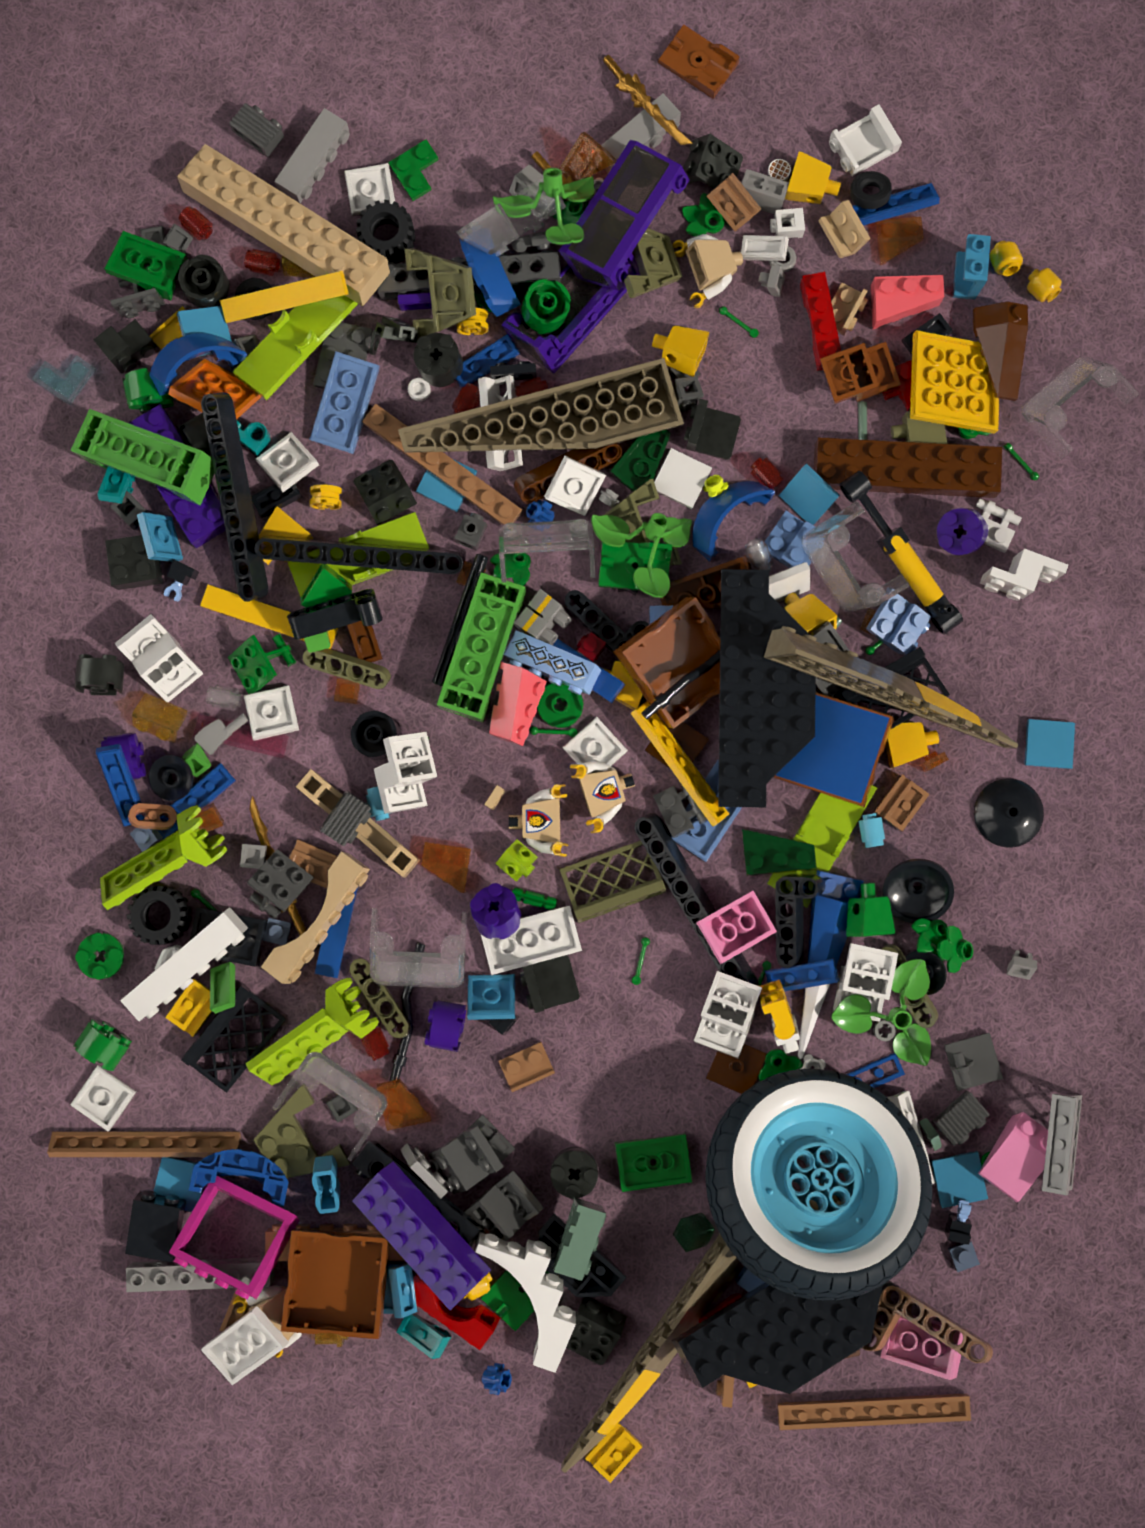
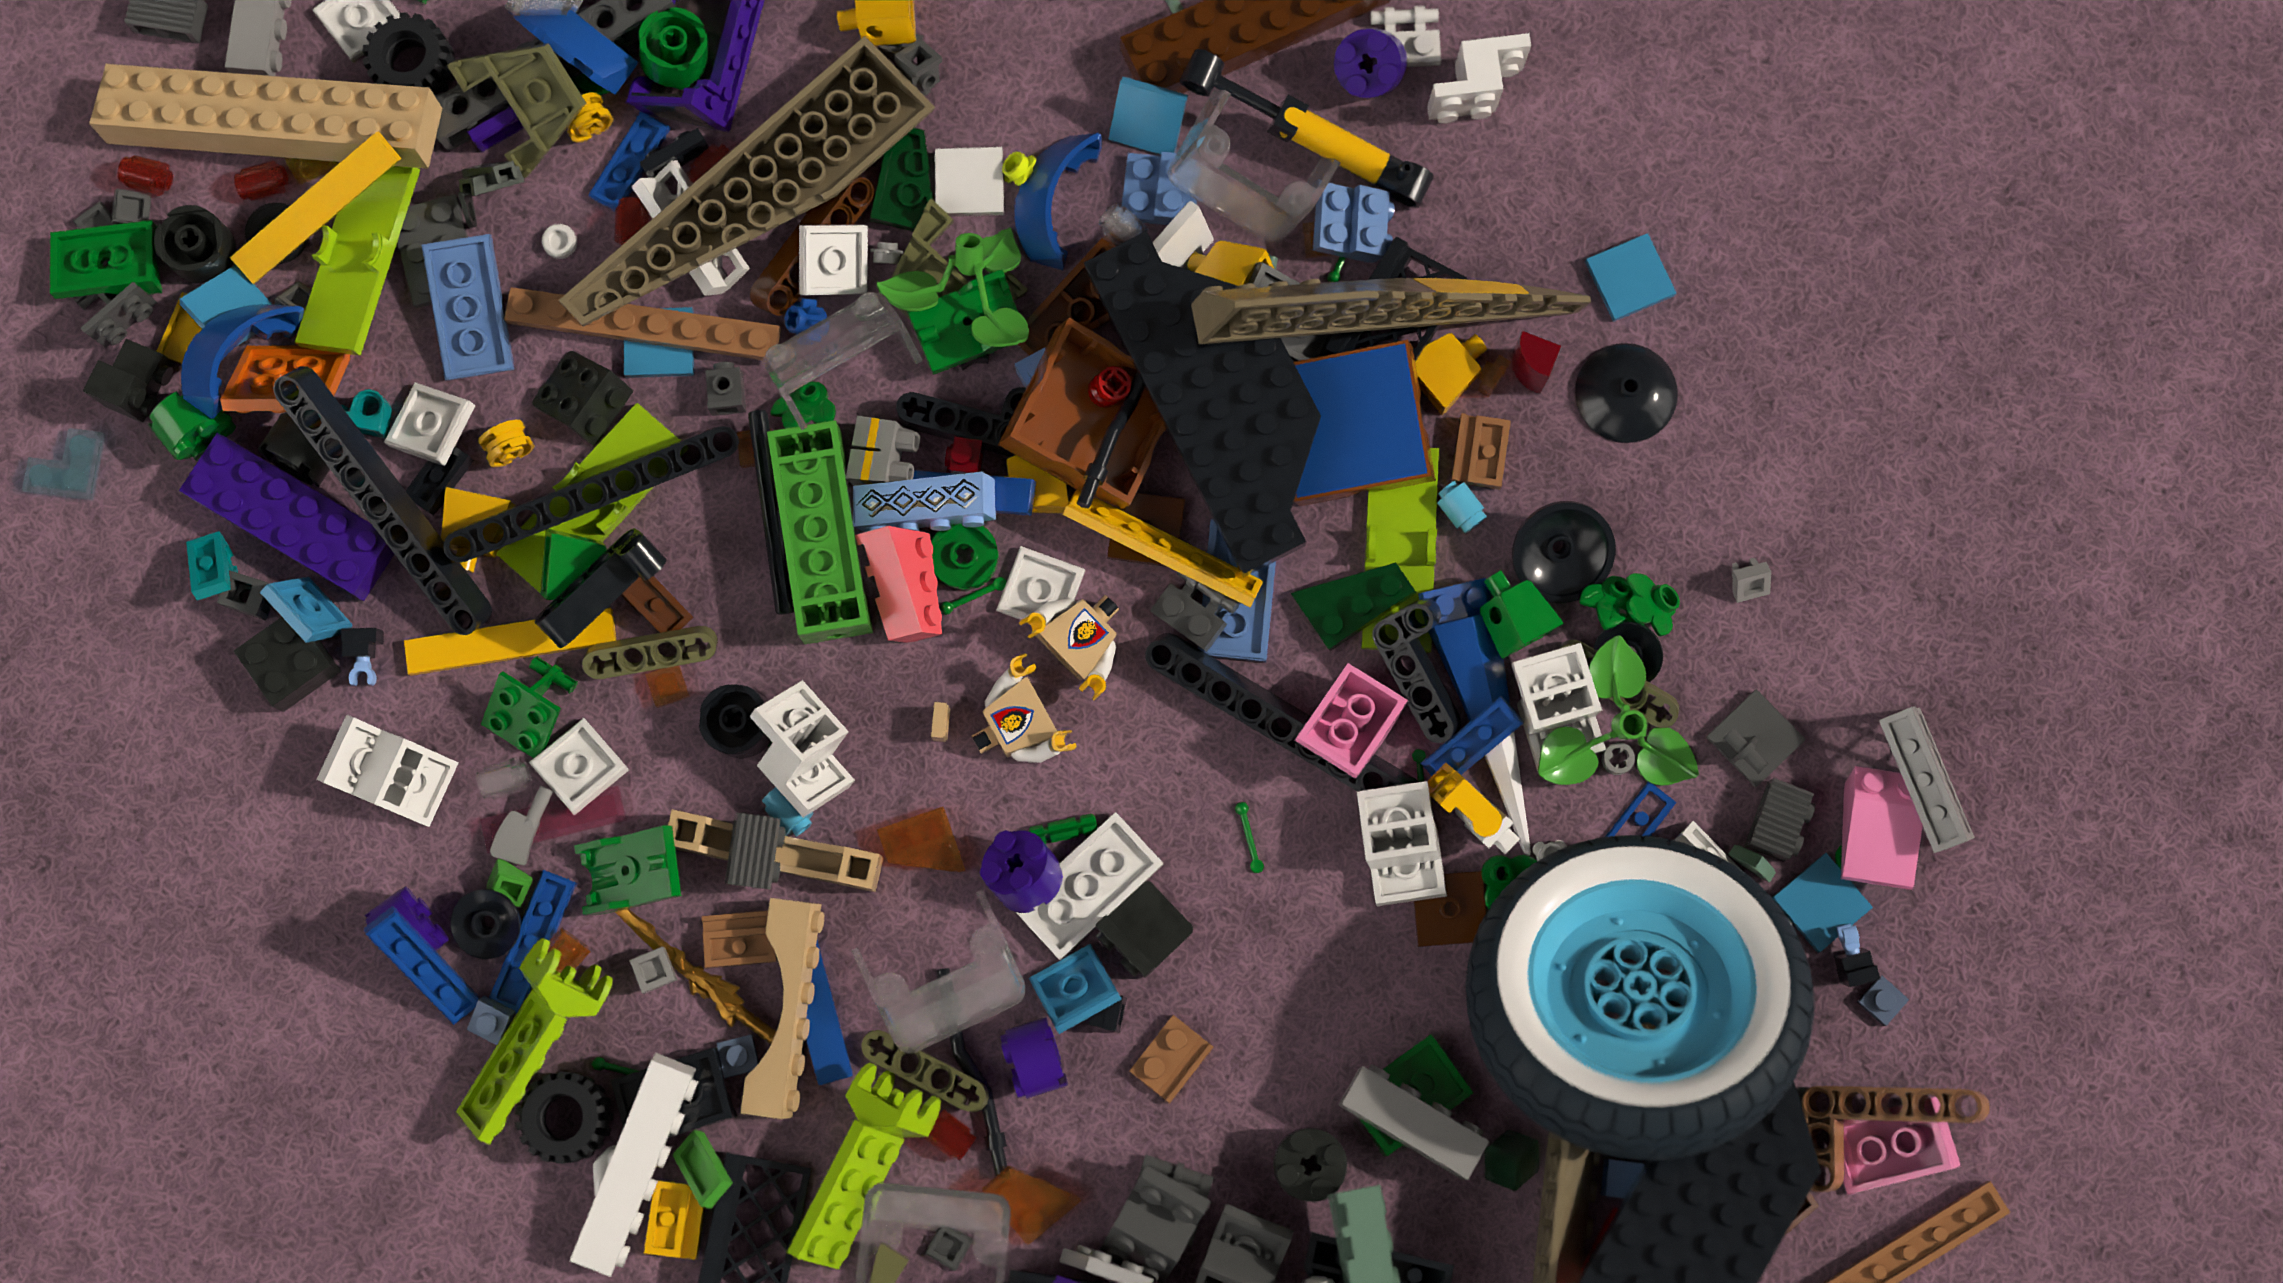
camera: 30 degrees left, 5 degrees down
(87, 958) = (529, 1207): green plate -> none
(99, 675) = (316, 835): pearl dark grey brick -> none
(144, 455) = (231, 506): bright green plate -> none
(152, 816) = (486, 988): nougat plate -> none
(158, 717) = (427, 853): clear yellow bracket -> none
(269, 791) = (630, 870): none -> green piece
(279, 882) = (706, 984): dark grey plate -> none
(317, 642) = (594, 637): bright green slope -> none
(438, 359) = (565, 188): pearl dark grey brick -> none
(517, 861) = (1014, 789): lime brick -> none
(617, 900) = (1172, 775): olive fence -> none
(646, 1181) = (1414, 1123): none -> light grey brick
(694, 648) = (1103, 391): none -> red wheel
(712, 431) = (977, 100): pearl dark grey bracket -> none
(766, 473) = (1077, 117): clear red brick -> none
(963, 766) = (1534, 360): none -> dark red brick

